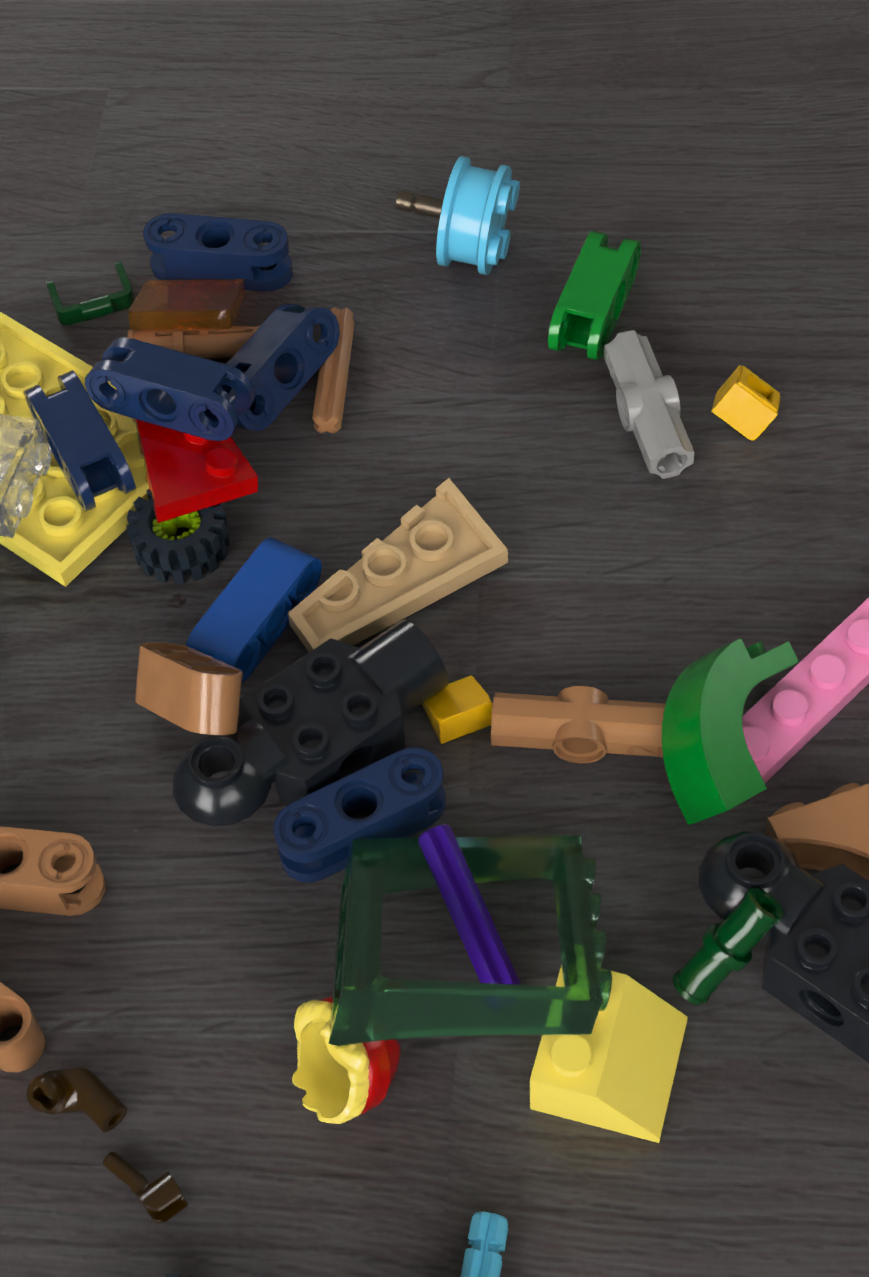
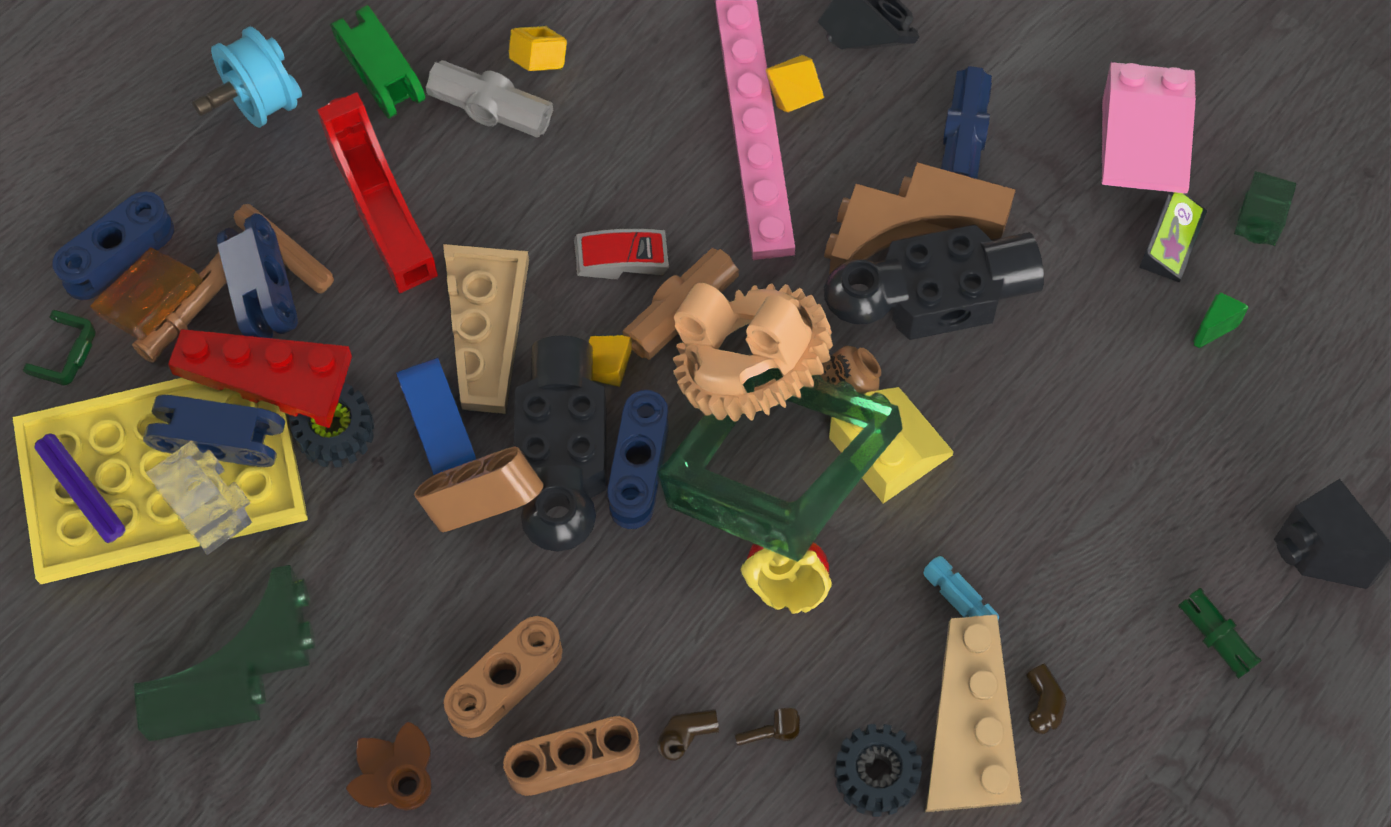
camera: 55 degrees left, 10 degrees up
(170, 388) = (241, 346): dark blue piece -> none
(441, 388) = (376, 192): none -> red arch
(467, 906) = (755, 446): dark purple axle -> none
(589, 819) = (782, 333): none -> light nougat piece
(591, 630) = (621, 250): none -> slope
(643, 945) = (855, 367): none -> medium nougat head
(704, 728) = (747, 237): green arch -> none
(727, 946) = (888, 331): dark green pin -> none

